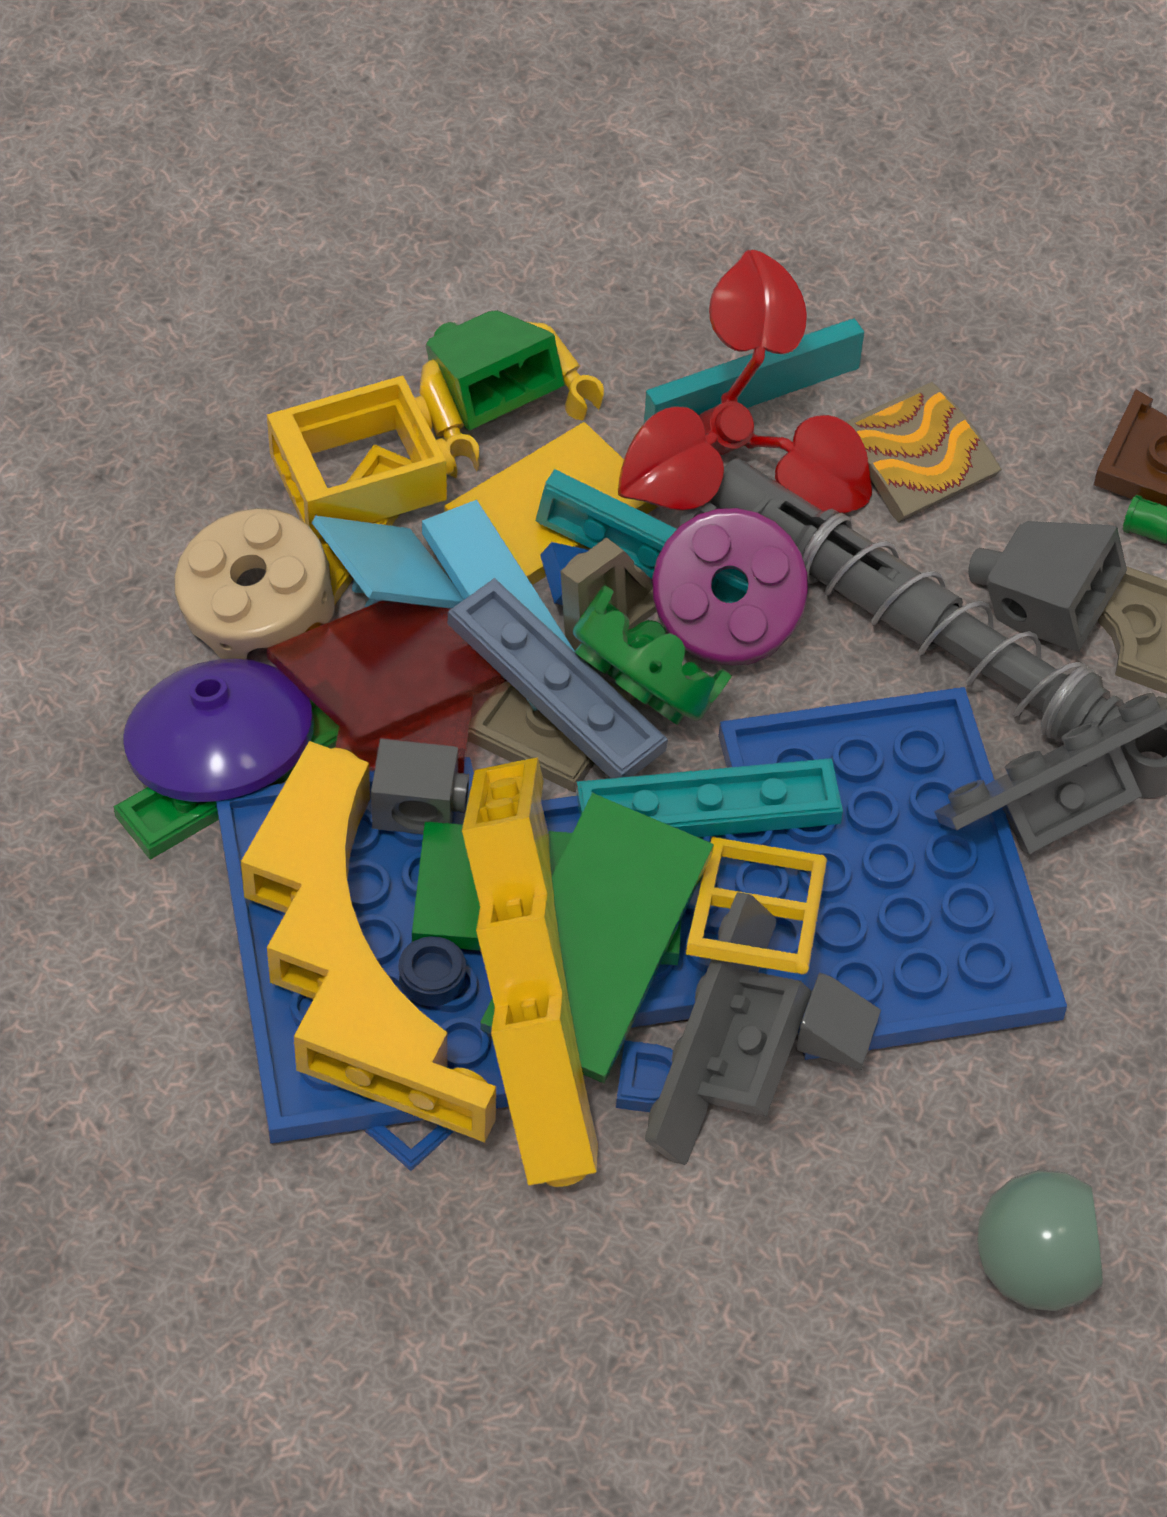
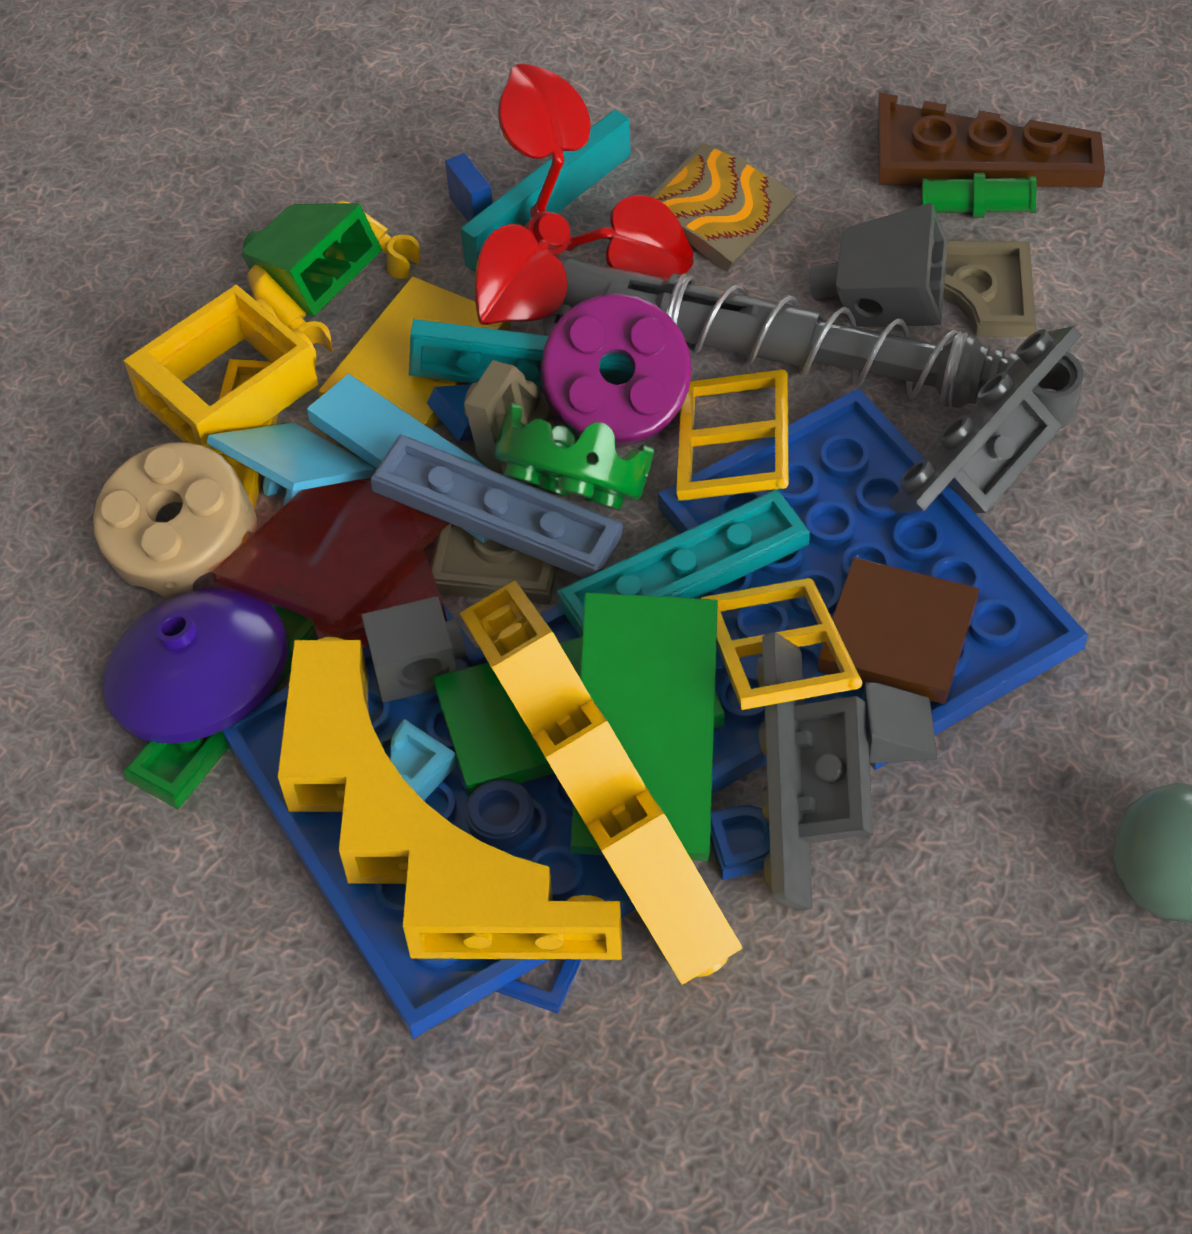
camera: 15 degrees left, 0 degrees up
(380, 895) = (420, 758): none -> medium azure tile
(676, 347) = (467, 186): none -> blue tile
(779, 678) = (732, 433): none -> yellow window
(886, 935) = (902, 628): none -> reddish brown tile

